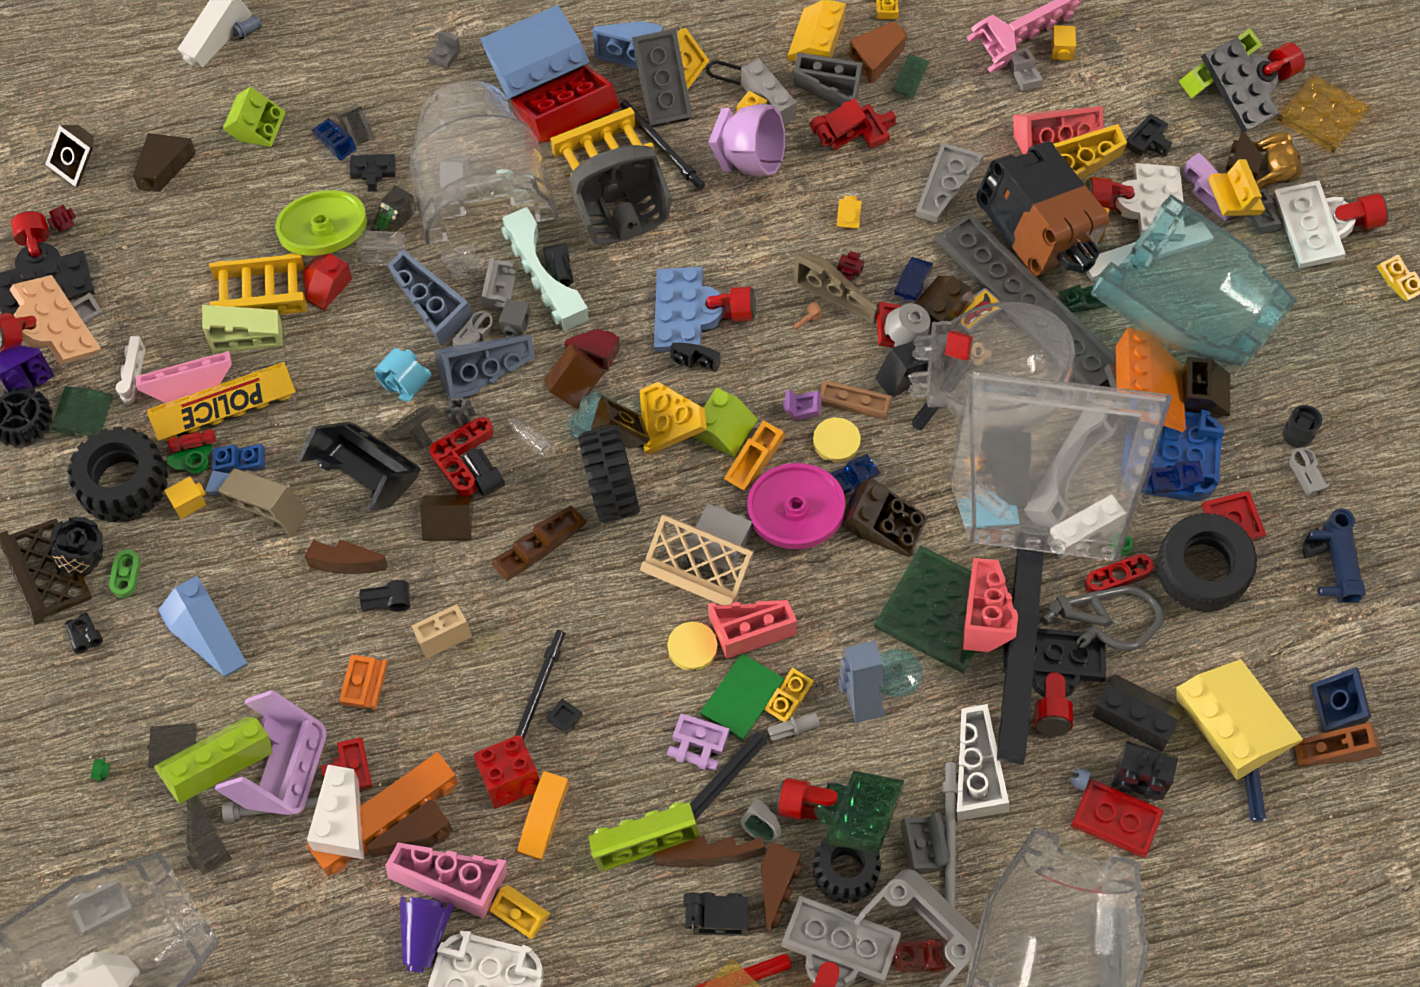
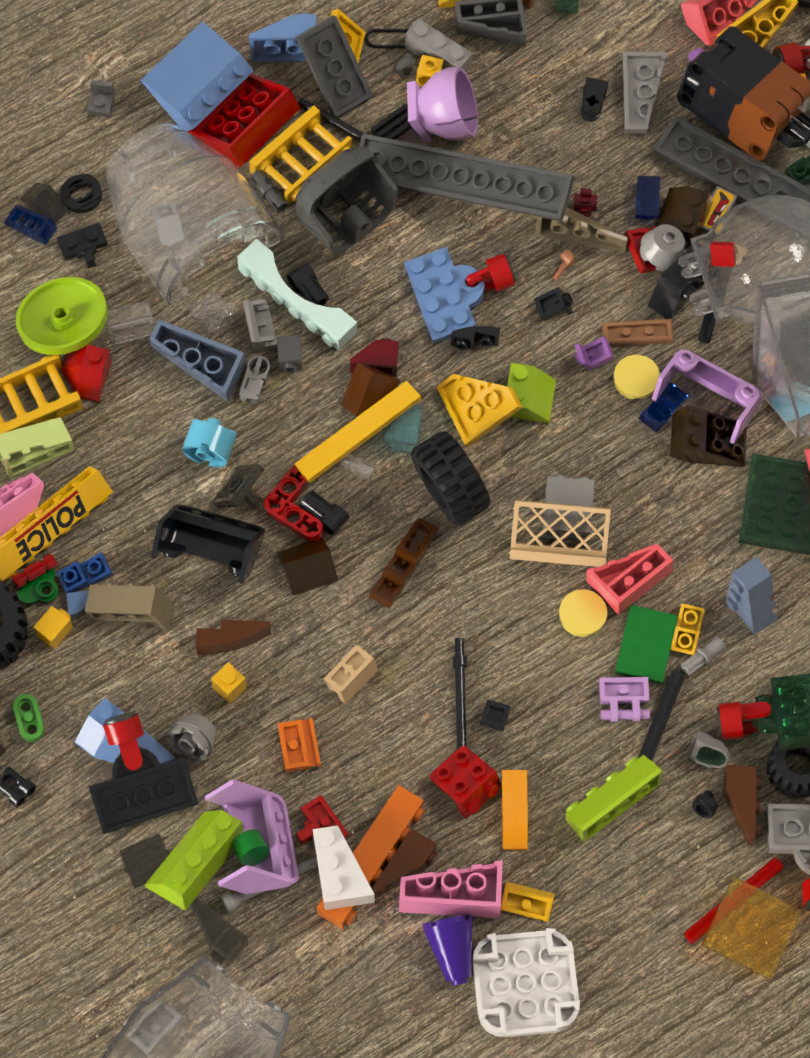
camera: 20 degrees left, 5 degrees up
(100, 769) = (92, 905): green plate -> none
(194, 668) = (139, 783): none -> black plate
(264, 640) = (193, 737): none -> light grey cone
(268, 764) = (250, 847): none -> green piece
(322, 601) = (229, 683): none -> yellow brick
(391, 135) = (77, 205): none -> black piece
(392, 597) = (291, 656): black piece -> none
(394, 211) = (126, 282): clear smoke slope -> none
(459, 411) = (277, 461): dark grey gear -> none
(475, 365) = (270, 411): sand blue wedge -> none
(544, 406) = (358, 431): none -> yellow tile
(559, 171) = (268, 191): none -> dark grey pin
(629, 422) = (429, 421): dark brown slope -> none
(697, 144) = (376, 129): none -> black tile
(700, 854) = (668, 796): reddish brown slope -> none
(716, 914) = (704, 843): black hinge -> none
(732, 99) = (407, 66): none -> dark grey tile
(736, 874) = (705, 805): none -> black tile
(746, 208) = (472, 178): none -> dark grey plate
(755, 455) = (569, 416): light orange slope -> none
(783, 347) = (553, 303): none -> black bracket
(796, 506) = (627, 452): dark pink dish -> none
(841, 125) = (522, 62): red hinge -> none
(849, 212) = (562, 149): yellow bracket -> none
(880, 125) = (550, 53): red hinge -> none
(897, 176) = (593, 98): none -> black piece
(904, 682) = (787, 579): clear light blue dish -> none
(911, 462) = (715, 380): none -> lavender windscreen

